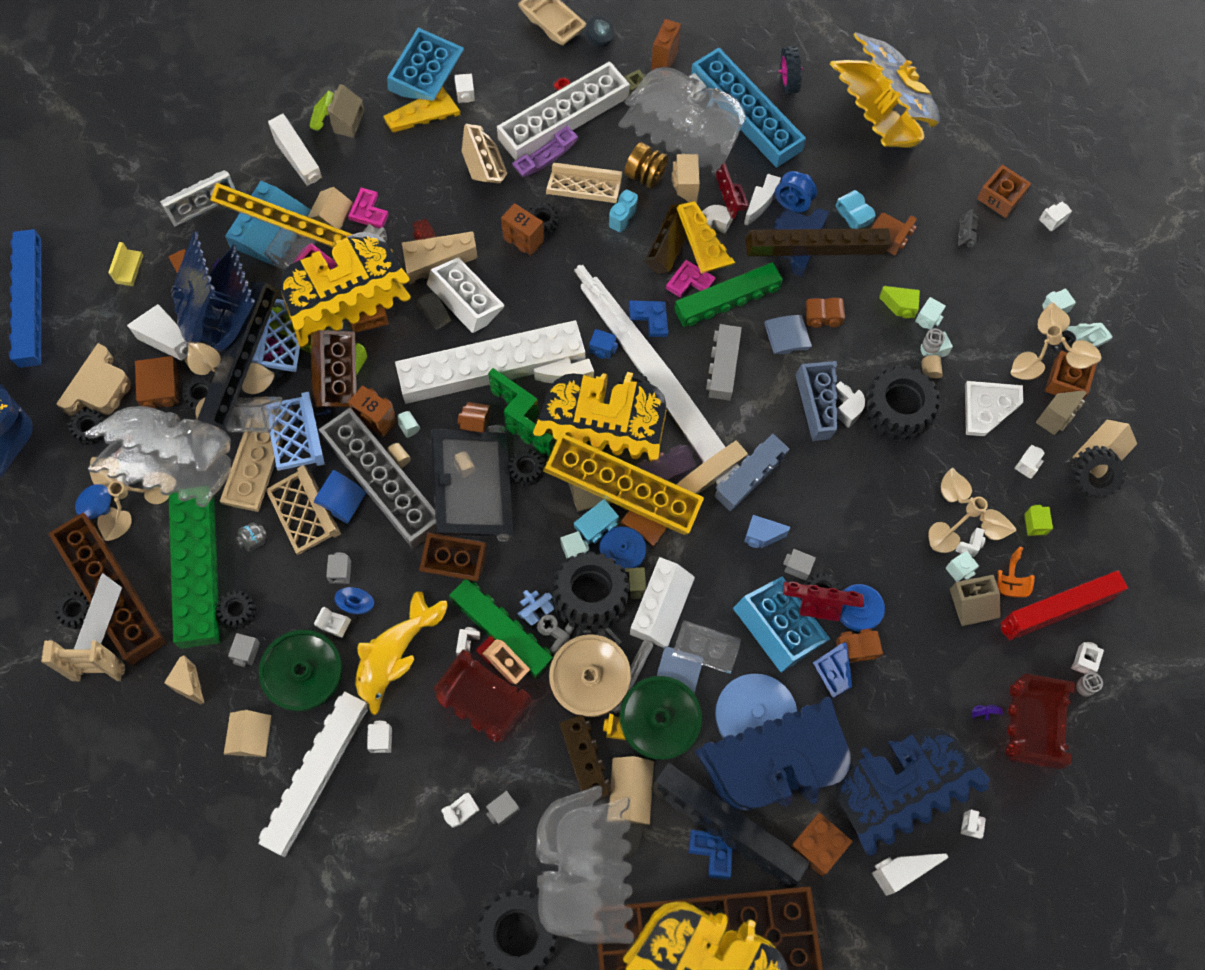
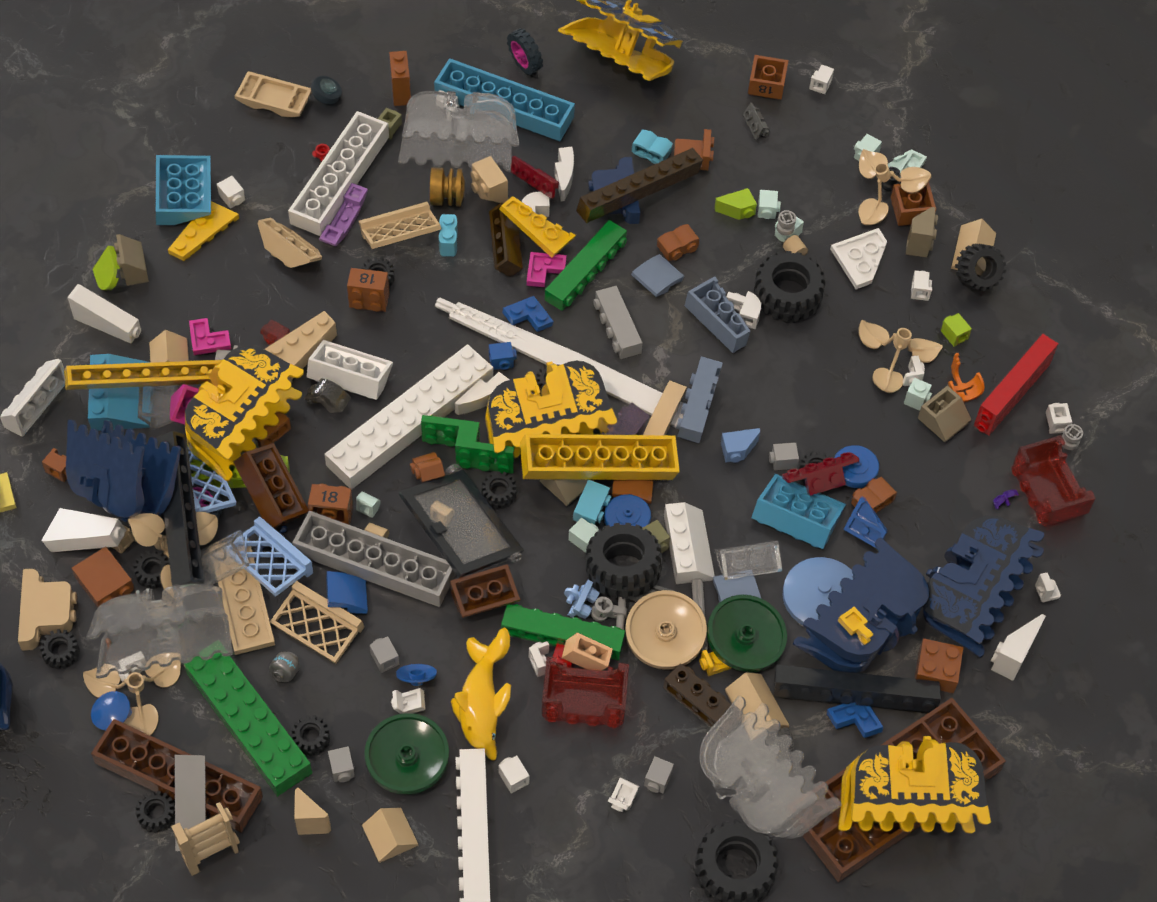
camera: 30 degrees left, 10 degrees down
(751, 770) = (854, 623): none -> yellow plate
(796, 191) = (592, 152): blue wheel -> none

